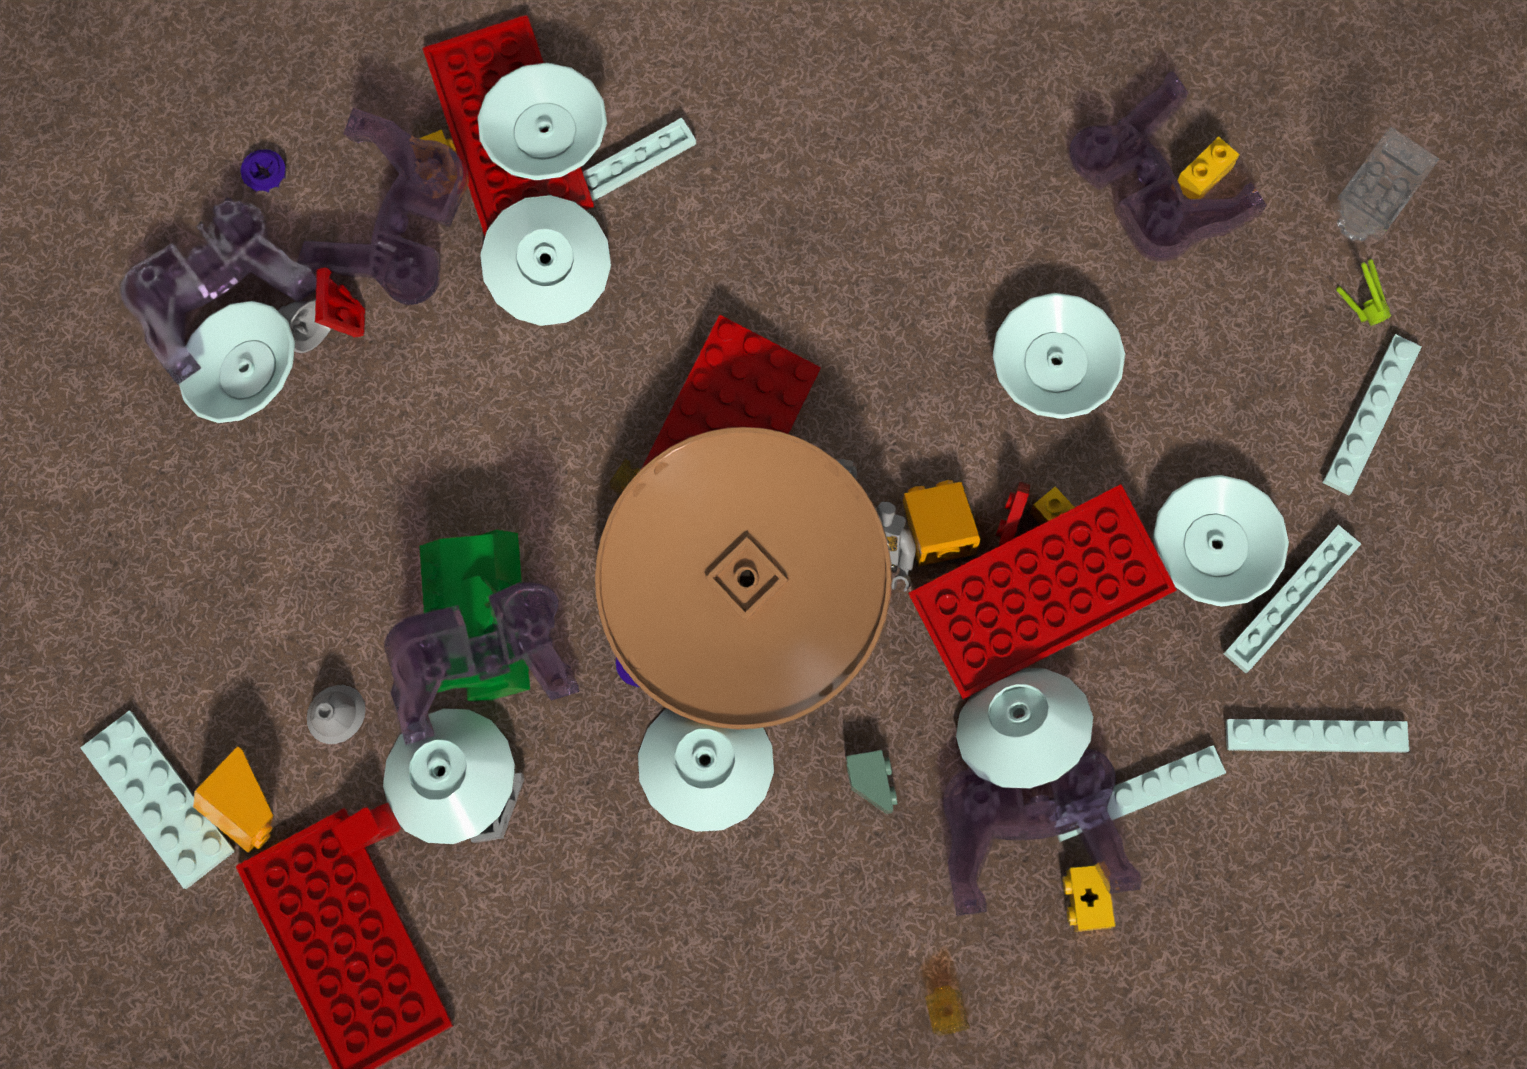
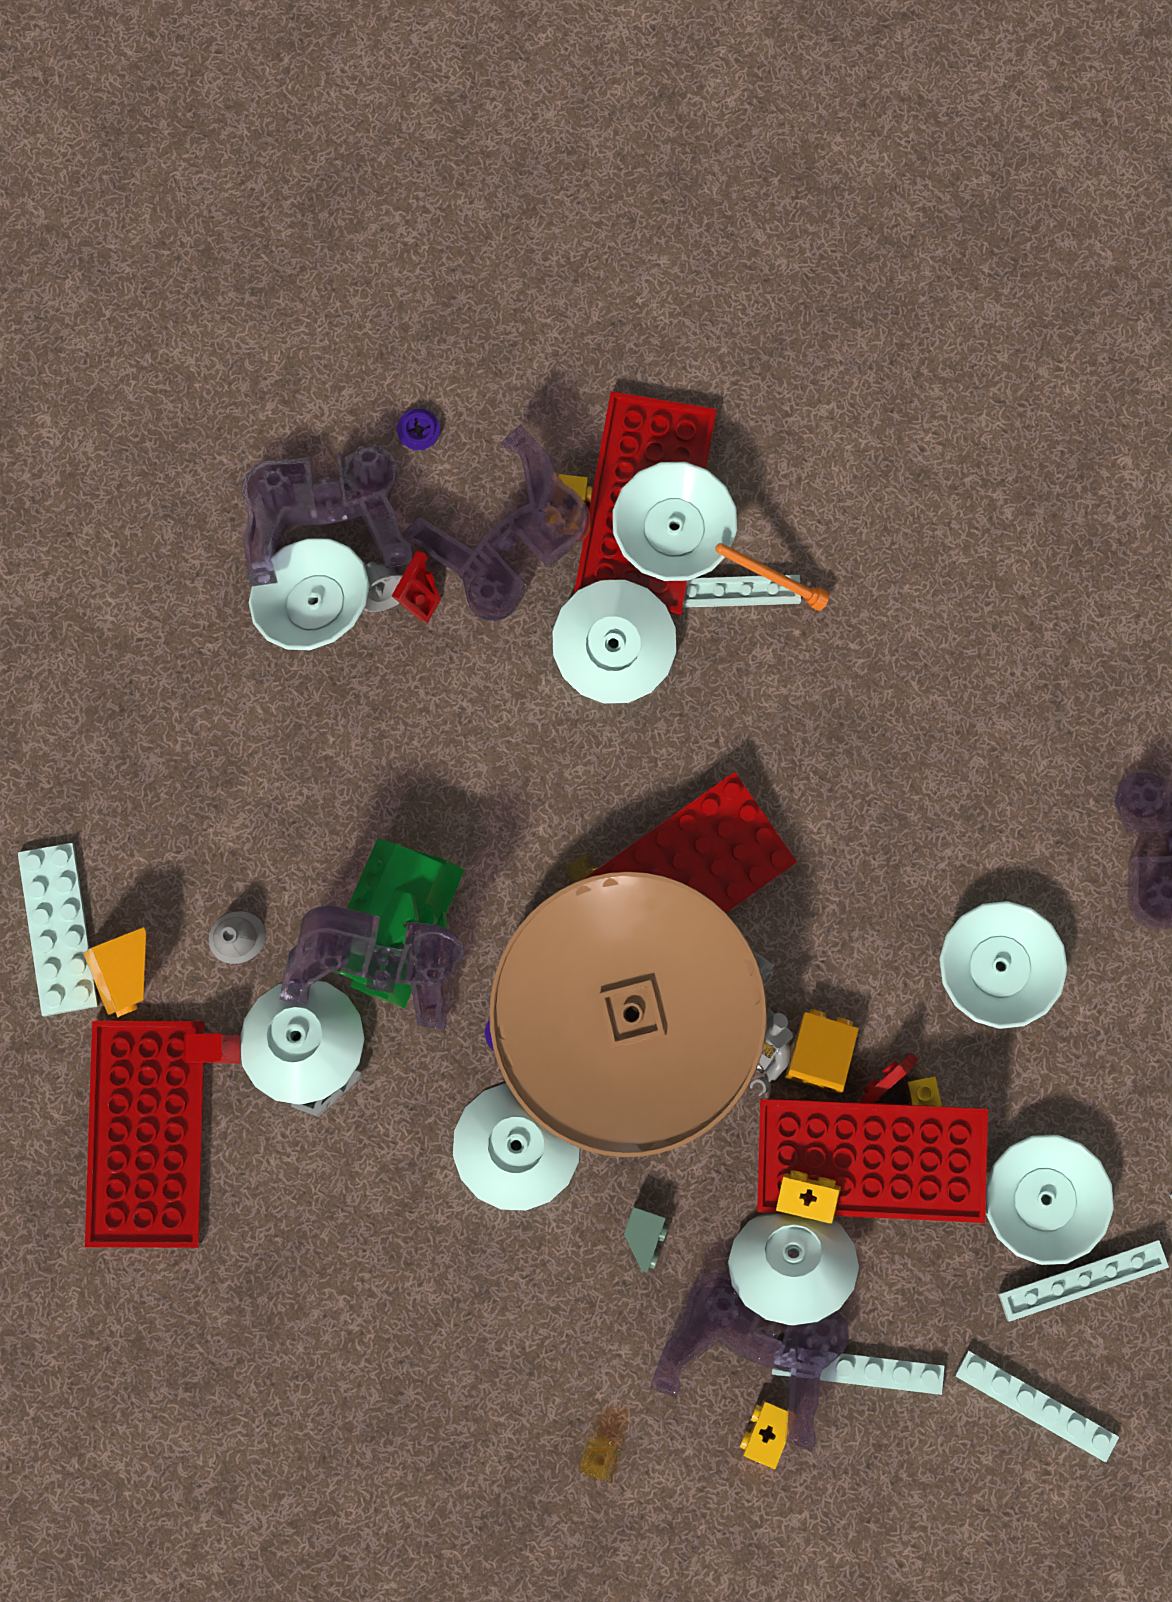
camera: 25 degrees right, 5 degrees up
(707, 129) = (816, 597): none -> orange piece
(1021, 660) = (820, 1208): none -> yellow brick

